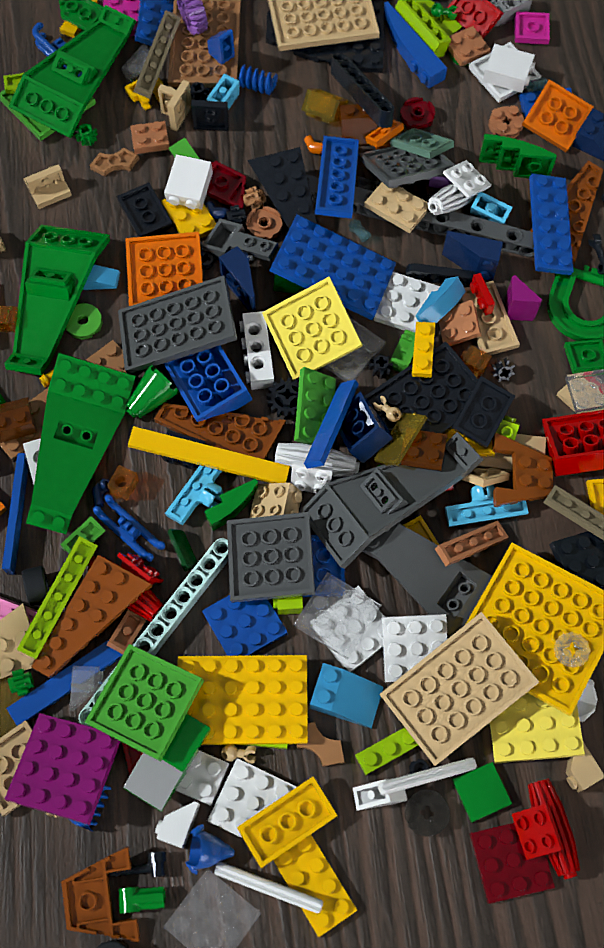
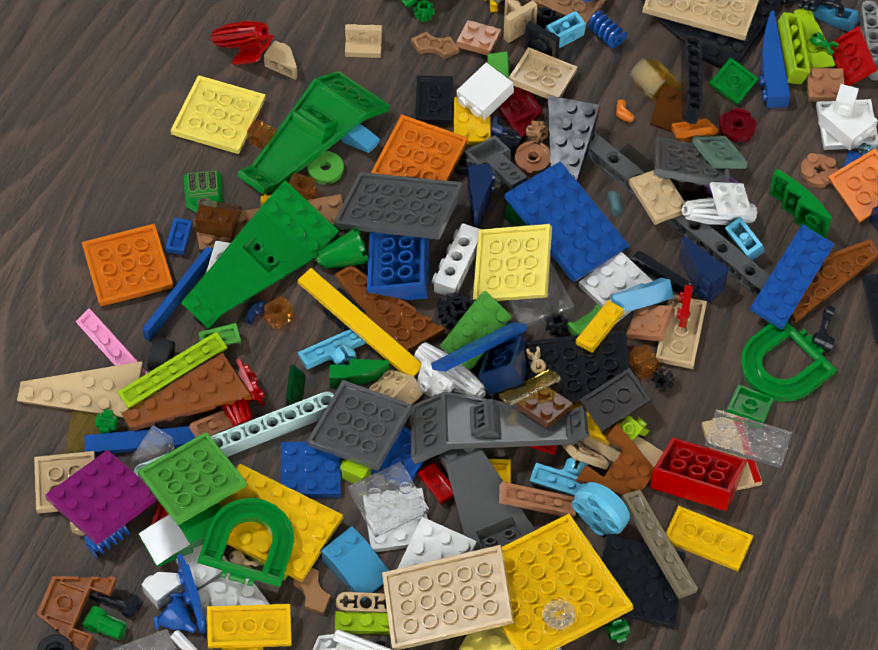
camera: 30 degrees right, 10 degrees down
(68, 345) = (300, 181): none -> clear orange brick
(129, 529) = (261, 349): blue piece -> none
(212, 823) = (190, 592): none -> blue plate
(227, 144) = (542, 74): none -> tan plate
(273, 729) = (249, 511): none -> green piece
(337, 177) = (619, 146): blue plate -> none
(367, 743) = (350, 597): none -> tan beam
(369, 574) = (436, 483): none -> red plate
(391, 77) = (733, 81): none -> green tile
(502, 48) = (845, 100): none -> white brick
(521, 301) = (715, 329): magenta slope -> none
(535, 522) = (601, 509): none -> medium azure piece

